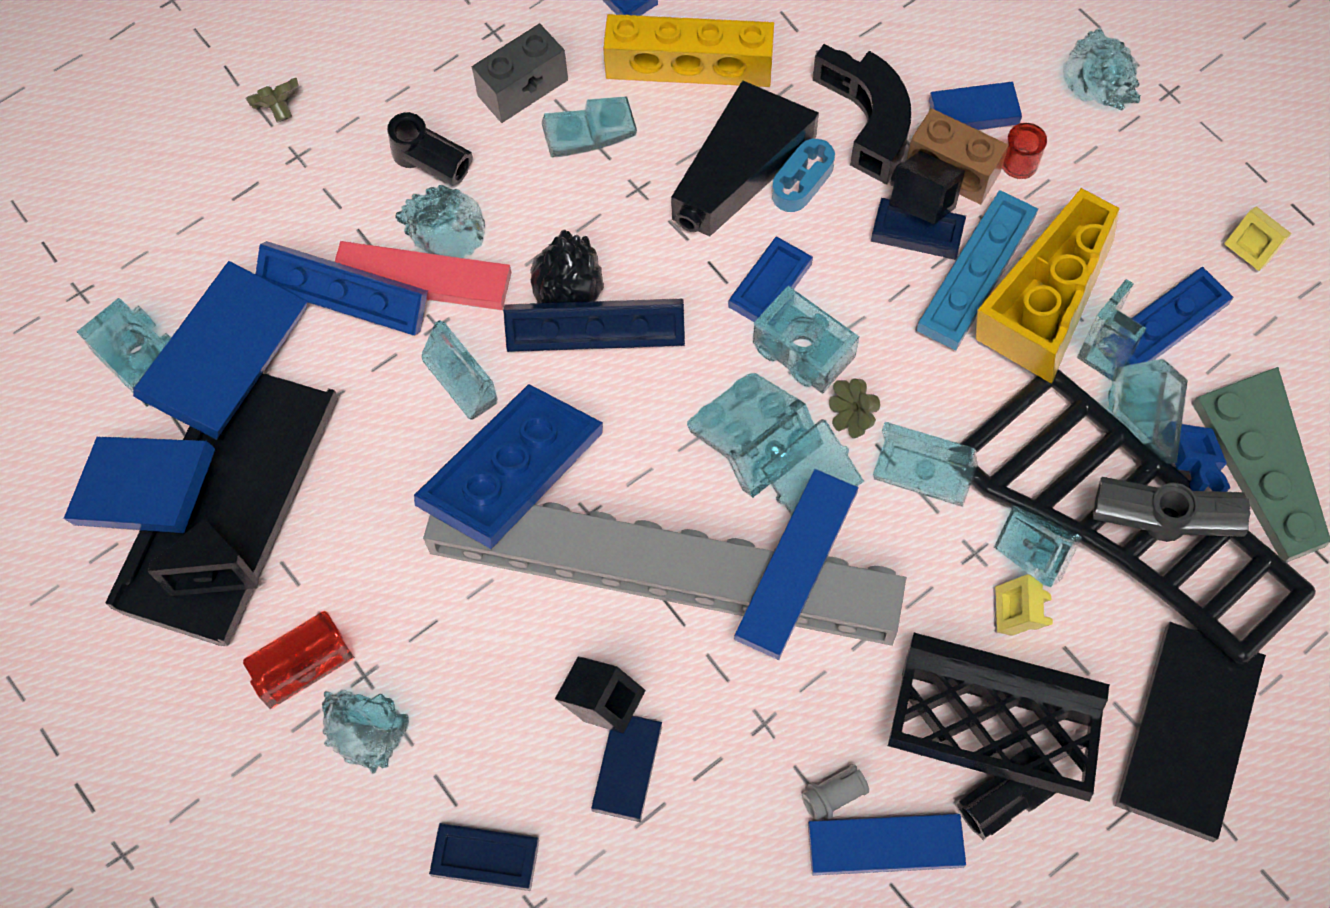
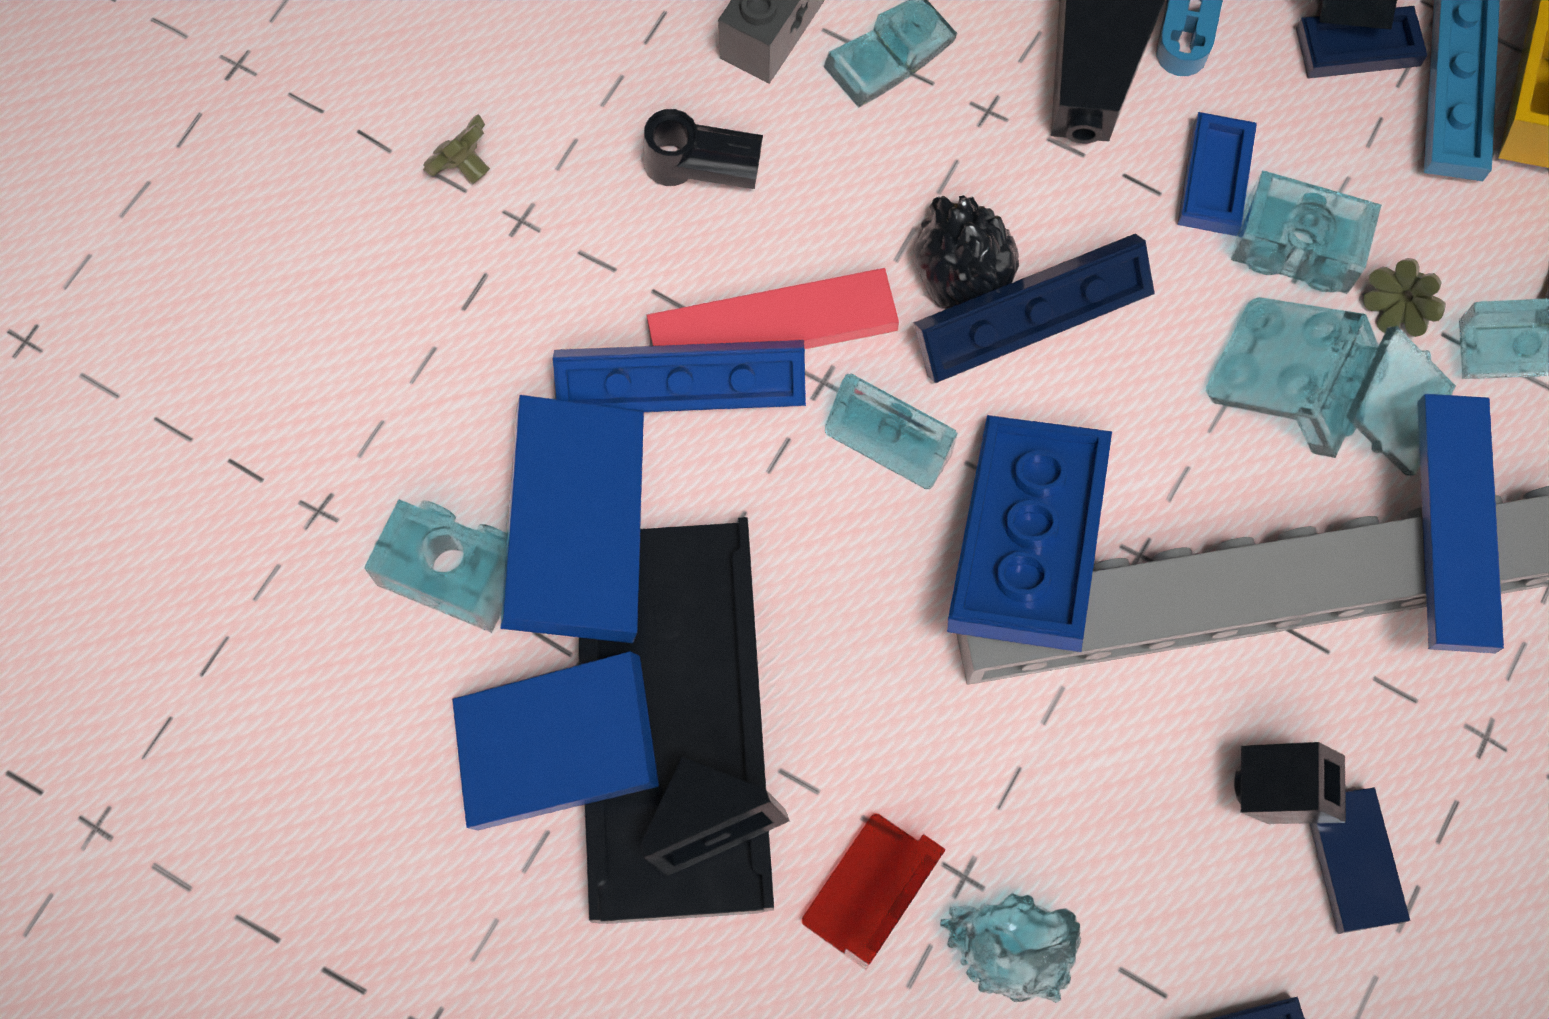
camera: 25 degrees left, 5 degrees up
(443, 222) = (769, 241): clear light blue hair -> none

